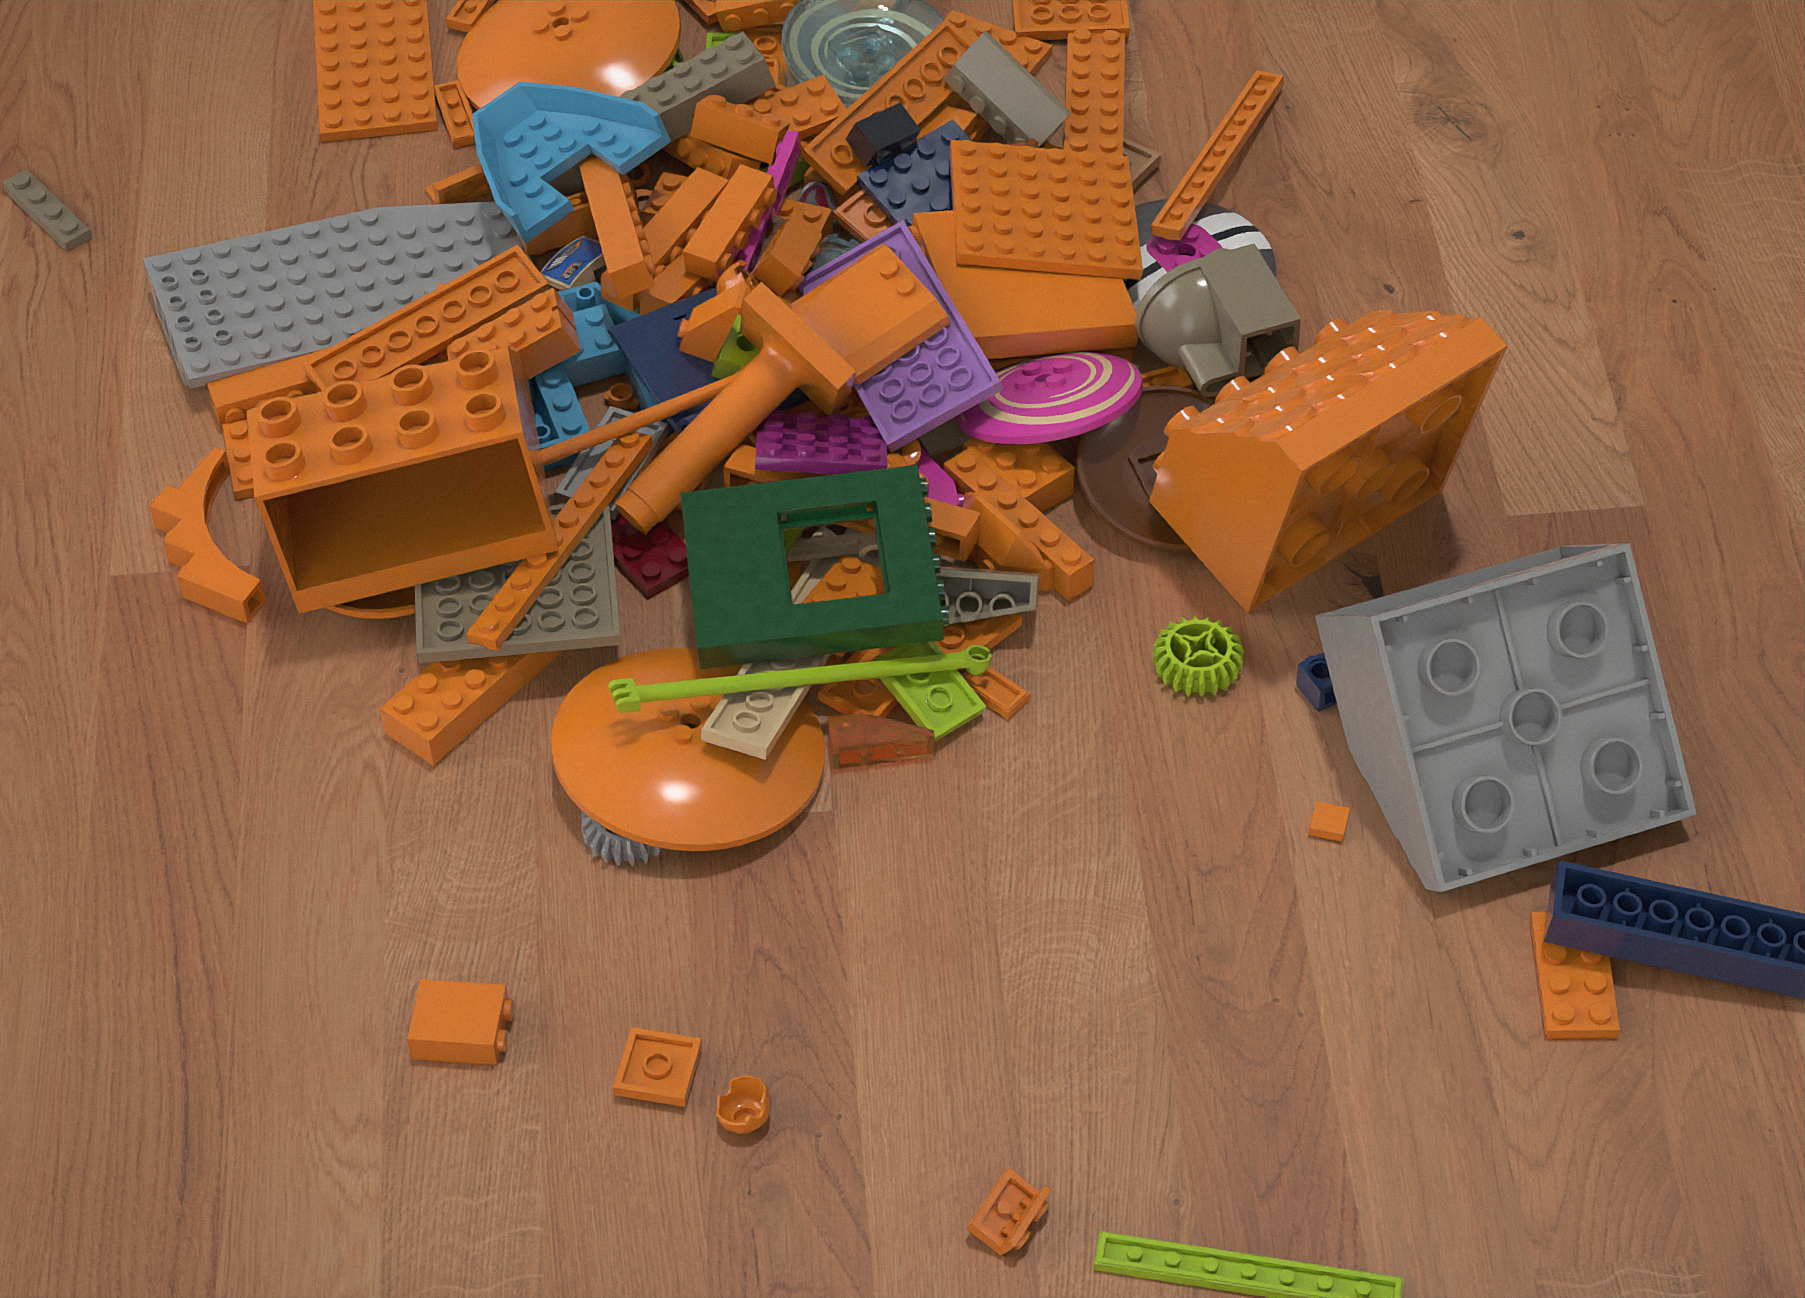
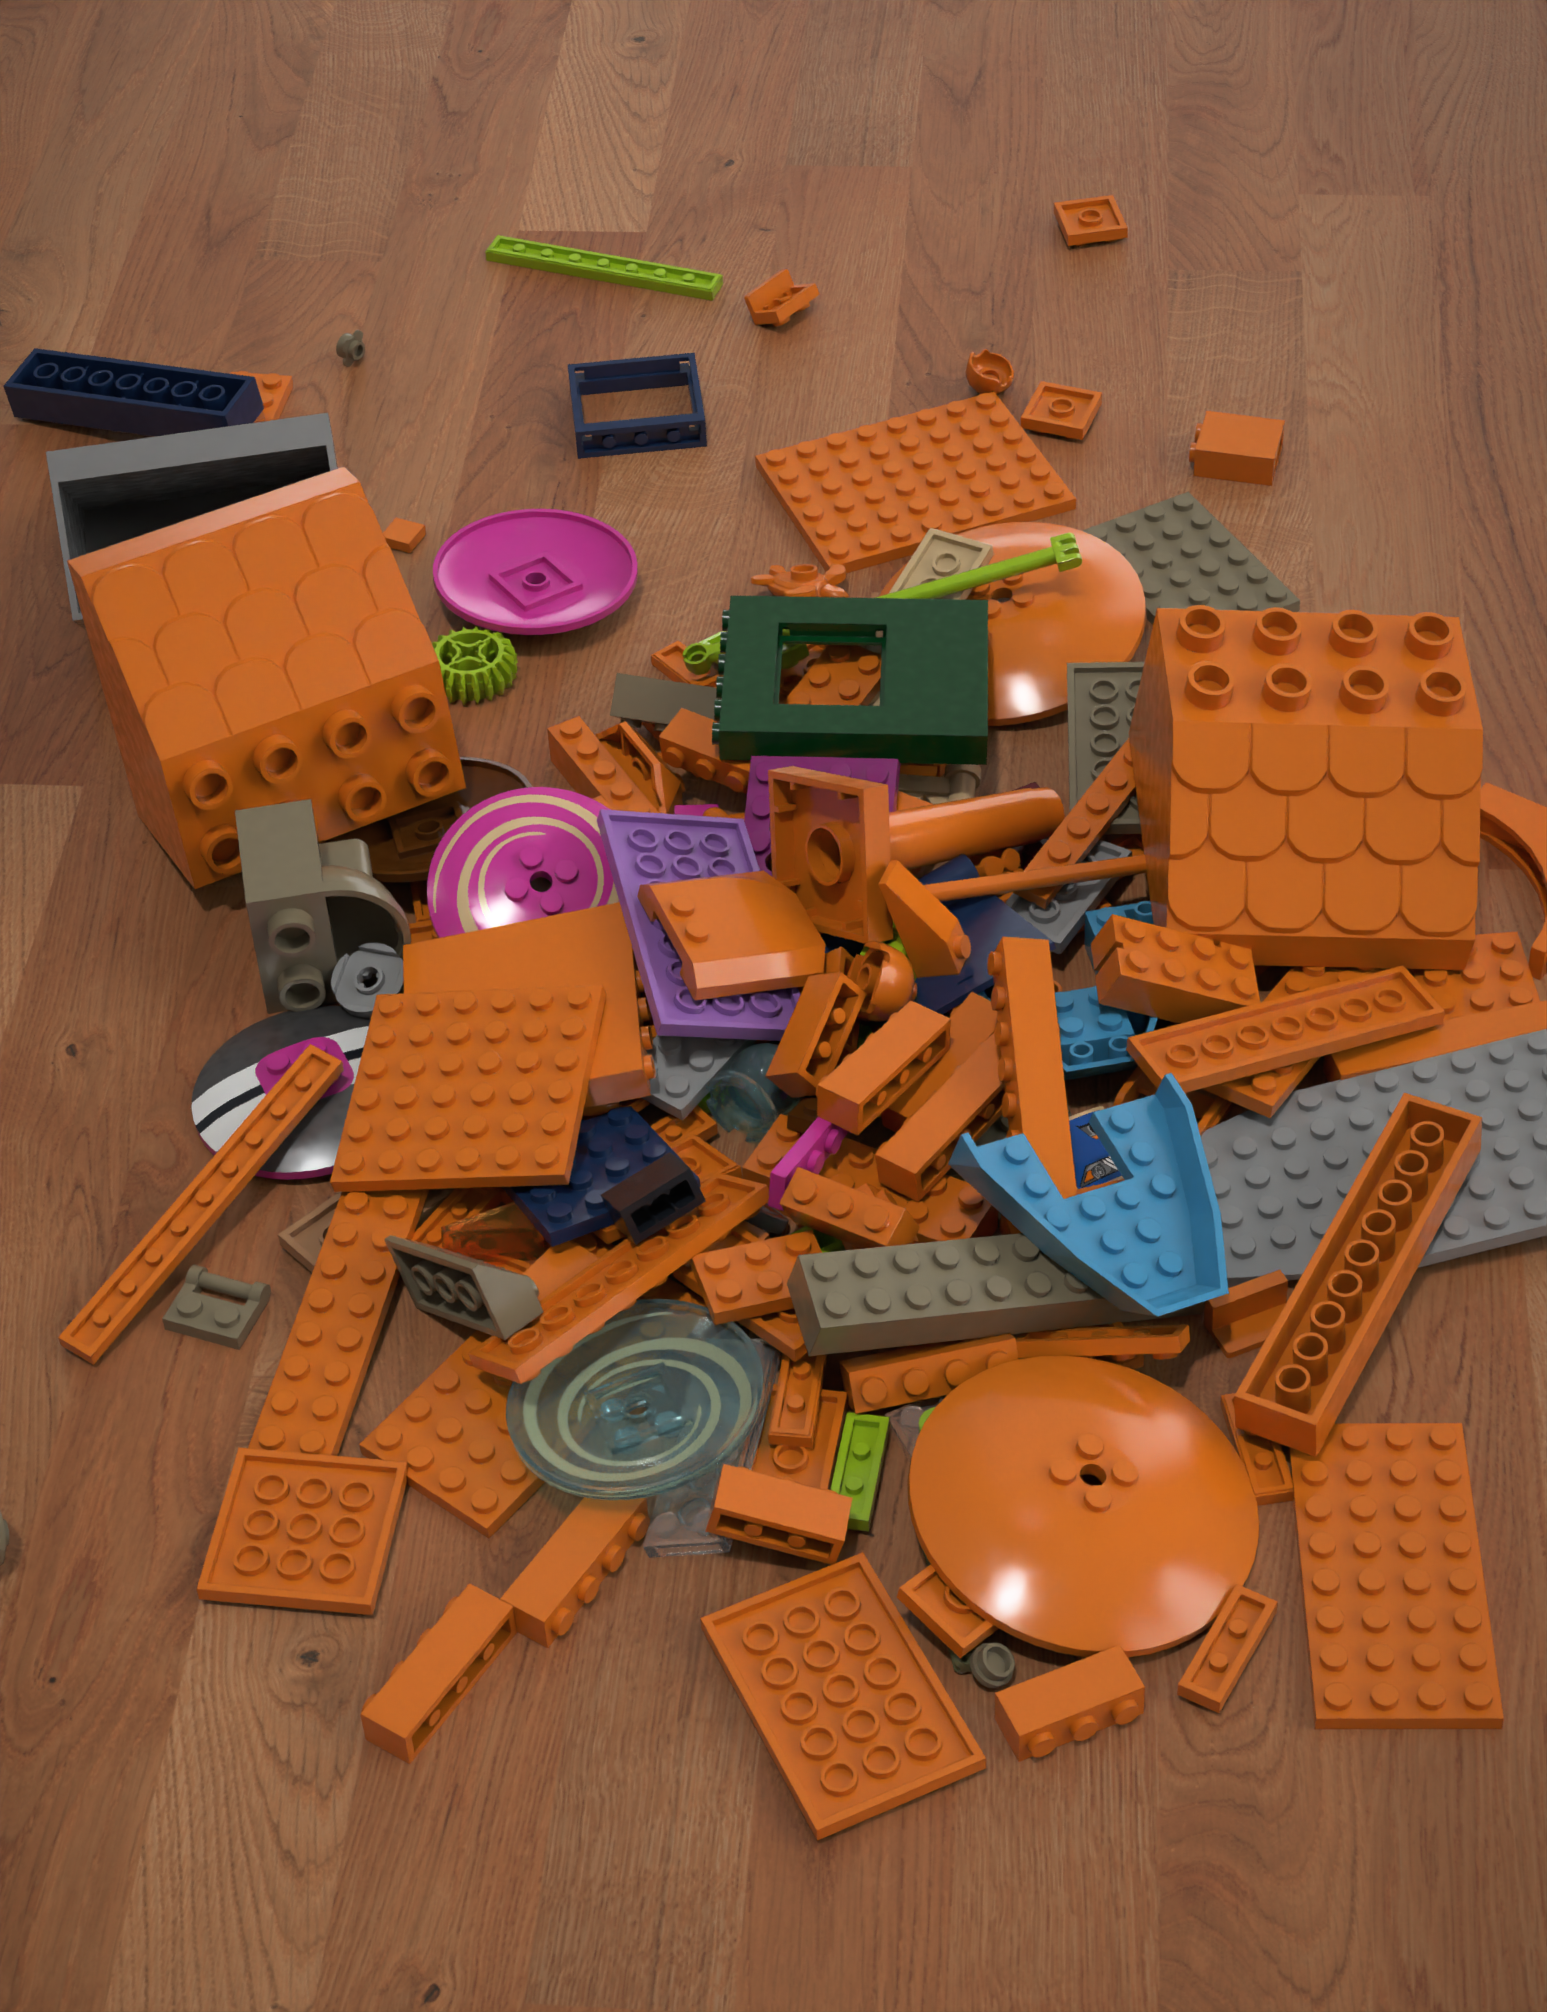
camera: 170 degrees left, 5 degrees down
(377, 173) = (1358, 1275): none -> orange brick
(516, 860) = (1192, 560): none -> dark tan plate
(809, 954) = (883, 485): none -> orange plate
(896, 775) = (803, 581): none -> orange animal
(1126, 972) = (643, 433): none -> dark blue window
(1173, 713) = (535, 571): none -> dark pink dish
(1186, 117) = (212, 1317): none -> dark tan plate
(1496, 1078) = (350, 347): none -> dark tan plate

